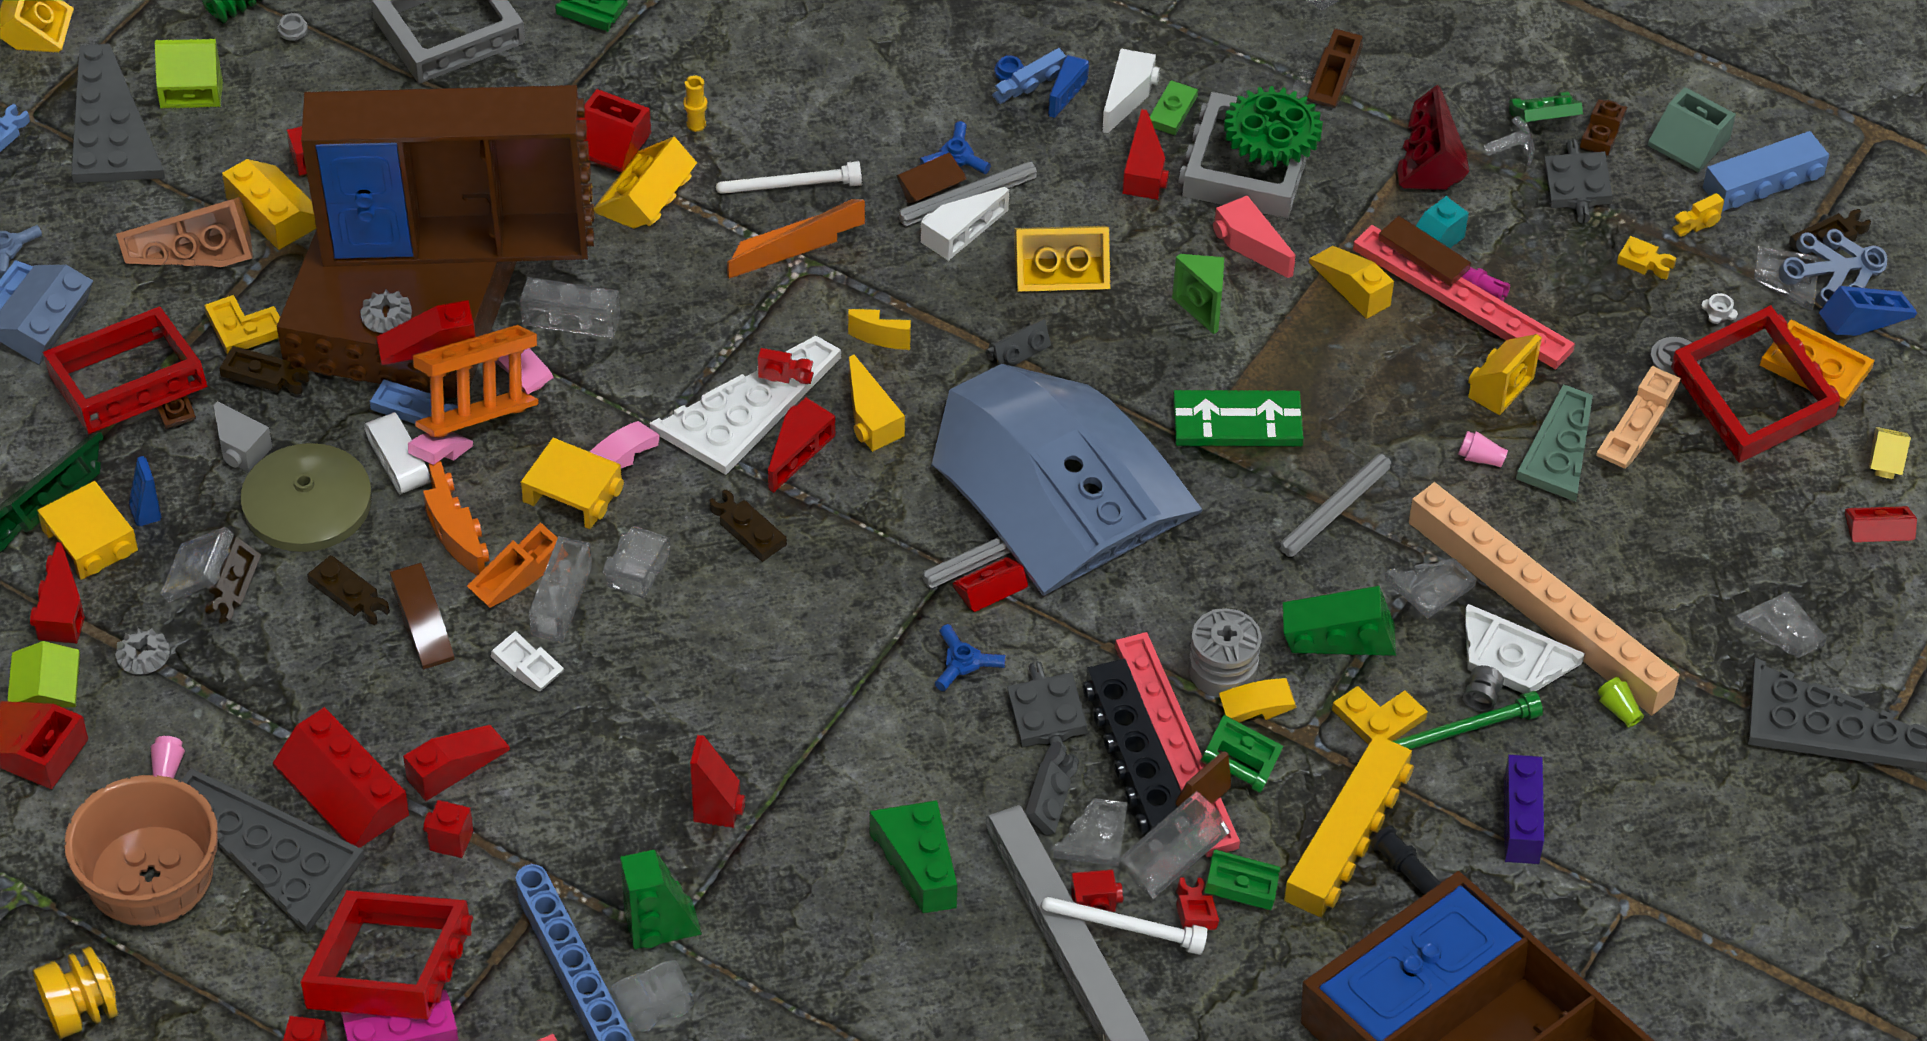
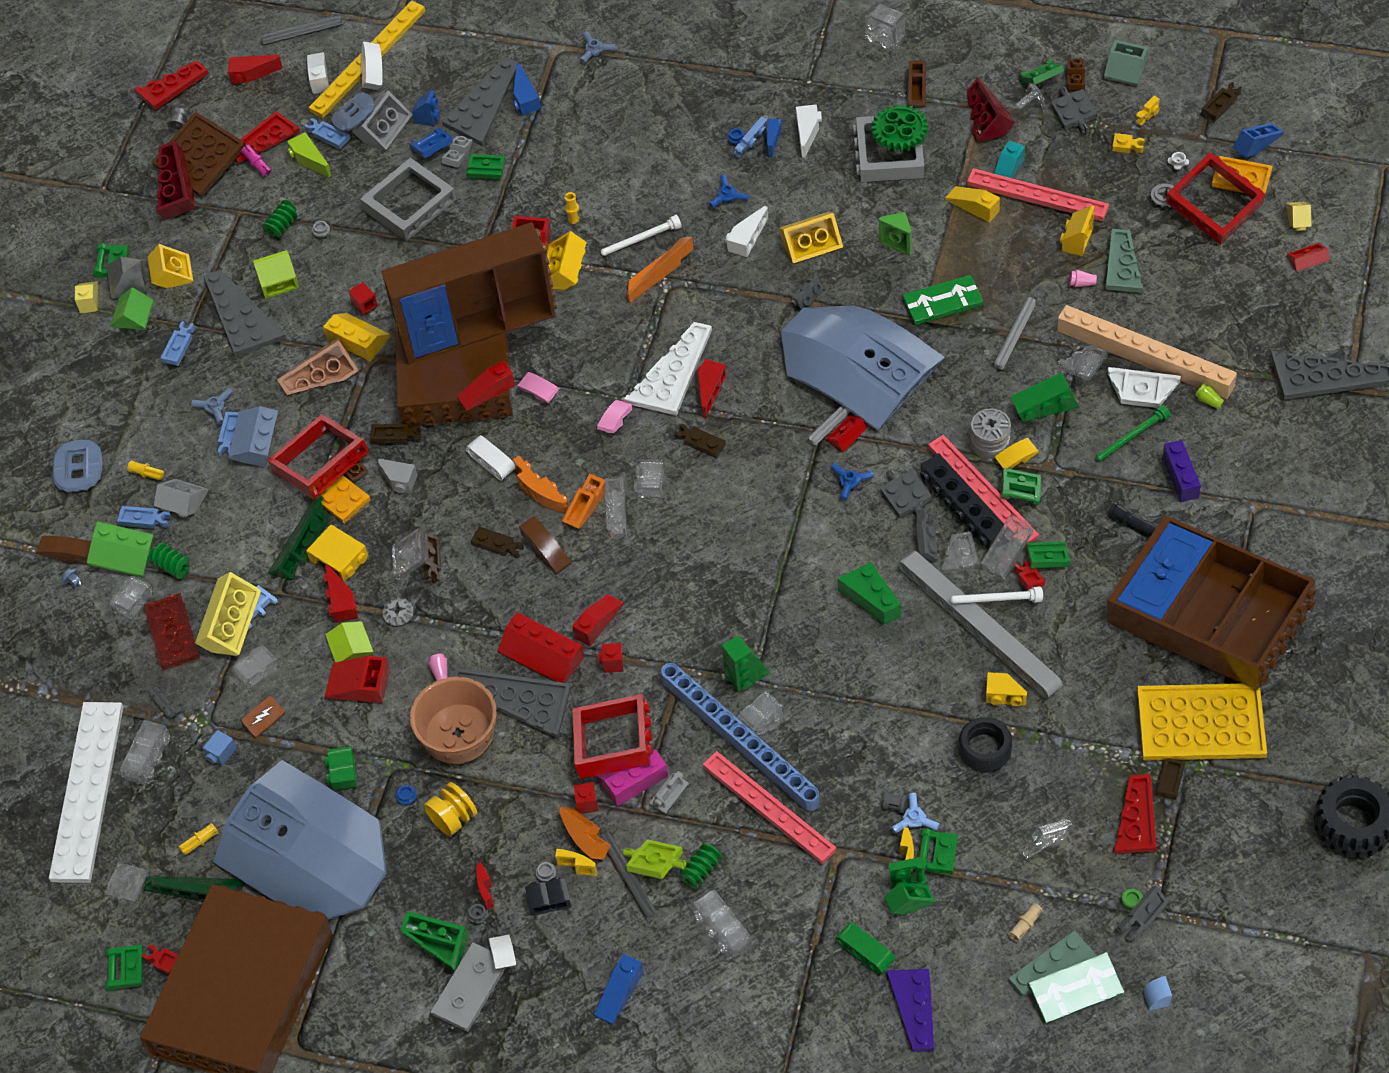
camera: 10 degrees left, 5 degrees up
(21, 948) = (406, 795): none -> blue plate
(136, 438) = (343, 499): none -> light orange plate
(143, 495) = (361, 524): blue slope -> none
(241, 330) = (371, 414): yellow plate -> none
(306, 497) = (449, 497): olive dish -> none
(374, 319) = (451, 385): light grey gear -> none
(404, 401) = (487, 428): medium blue plate -> none
(434, 449) = (513, 446): bright pink slope -> none
(461, 357) = (512, 394): orange fence -> none
(526, 663) = (613, 554): white slope -> none
(570, 307) = (551, 346): clear brick -> none
(573, 479) = (595, 442): yellow panel -> none
(714, 787) = (748, 591): red slope -> none
(780, 367) = (684, 345): red plate -> none
(875, 414) = (743, 355): yellow slope -> none
(888, 333) = (722, 308): yellow slope -> none
(930, 177) = (719, 212): reddish brown slope -> none
(1006, 178) = (751, 208): light grey axle -> none
(1096, 889) = (973, 584): red brick -> none
(1146, 162) = (835, 168): red slope -> none
(1173, 107) = (835, 132): bright green plate -> none
(1210, 781) = (1012, 507): reddish brown slope -> none
(1251, 235) = (909, 193): coral slope -> none
(1348, 826) = (1092, 508): yellow brick -> none
(1388, 721) = (1086, 447): yellow plate -> none
(1424, 251) = (1008, 175): reddish brown tile -> none
(1483, 688) = (1134, 411): flat silver wheel -> none
(1487, 283) = (1049, 183): dark pink pin -> none
(1640, 418) = (1159, 235): light nougat slope -> none
(1767, 170) = (1174, 74): medium blue brick -> none
(1767, 273) = (1208, 130): clear wing -> none
(1783, 624) = (1278, 328): clear wing -> none
(1834, 262) = (1248, 110): sand blue plant -> none

